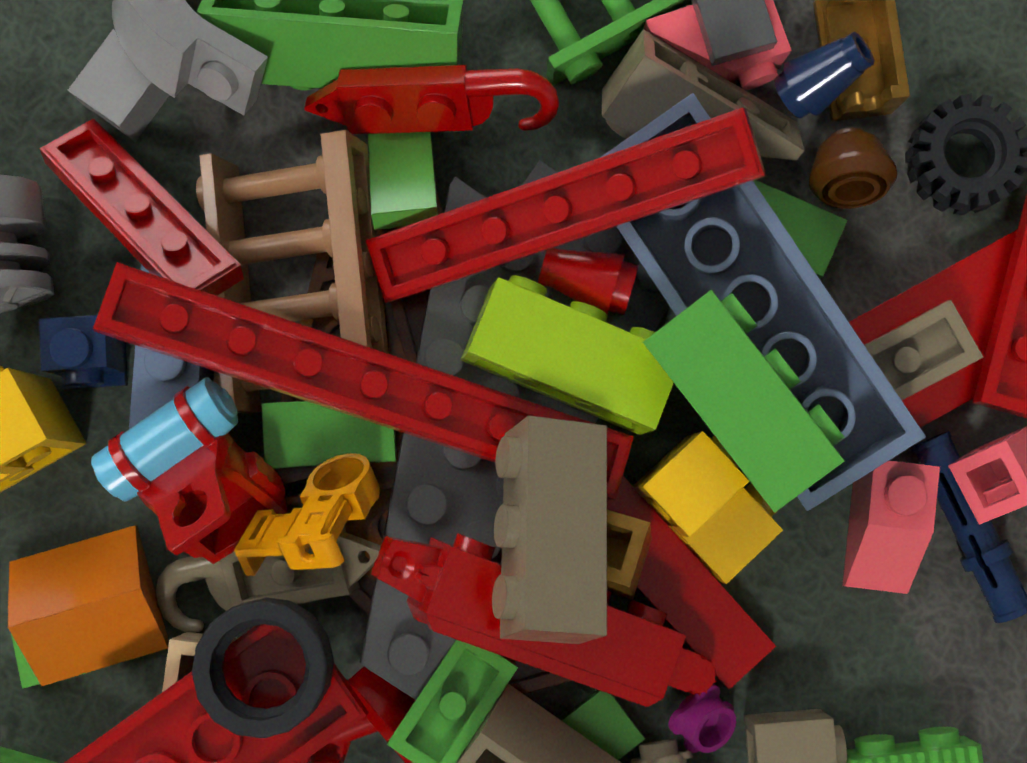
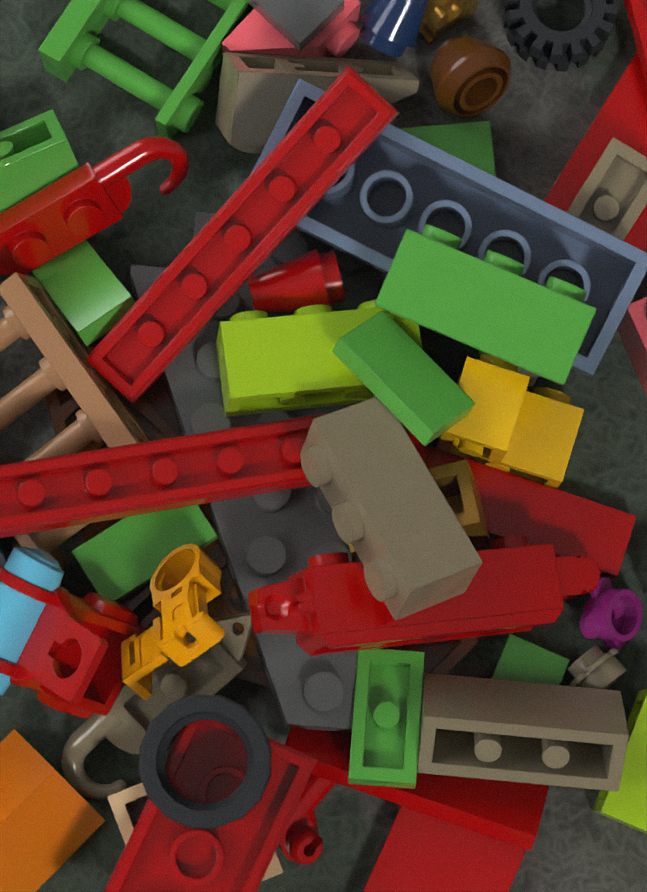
camera: 30 degrees left, 5 degrees down
(633, 420) = (403, 377): none -> bright green tile

